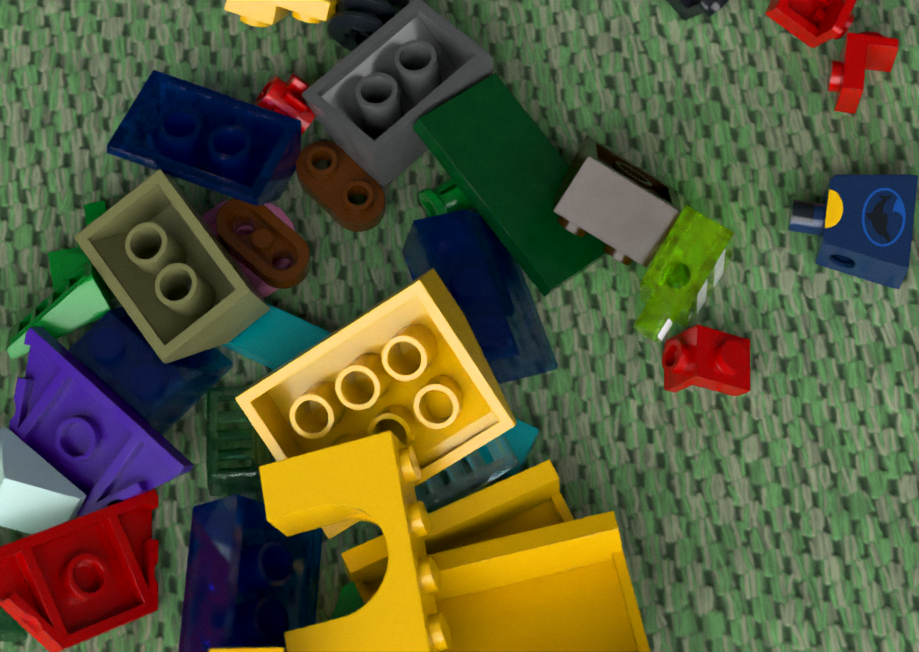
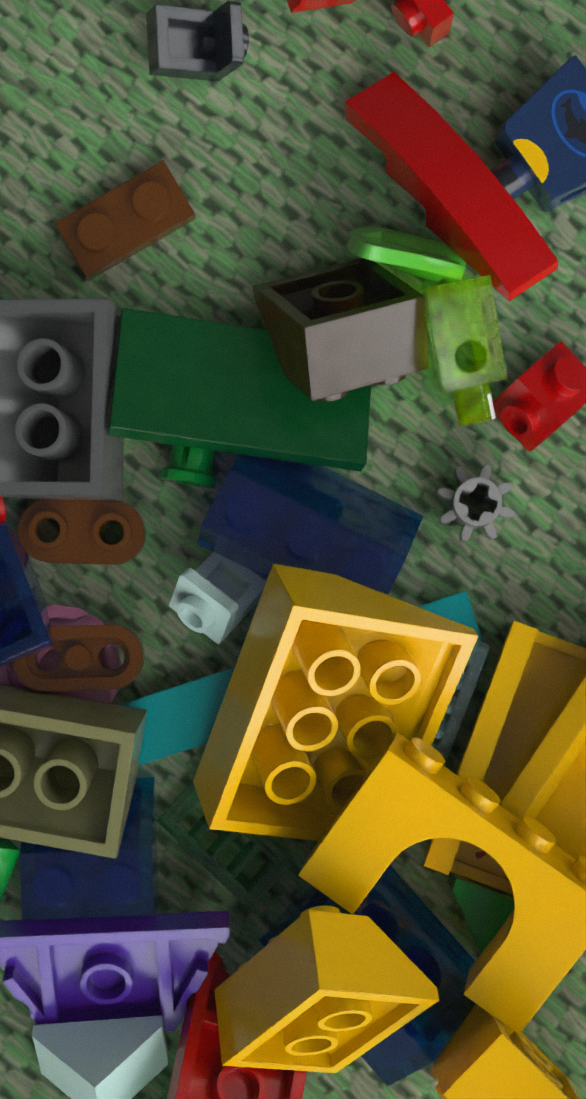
camera: 45 degrees left, 20 degrees up
(194, 555) = (319, 995): none -> yellow slope
(373, 277) = (216, 596): none -> light aqua bracket
(548, 43) = (125, 220): none -> reddish brown plate
(591, 394) = (491, 495): none -> light grey gear
(694, 190) = (407, 252): none -> bright green arm
(767, 187) = (453, 184): none -> red slope

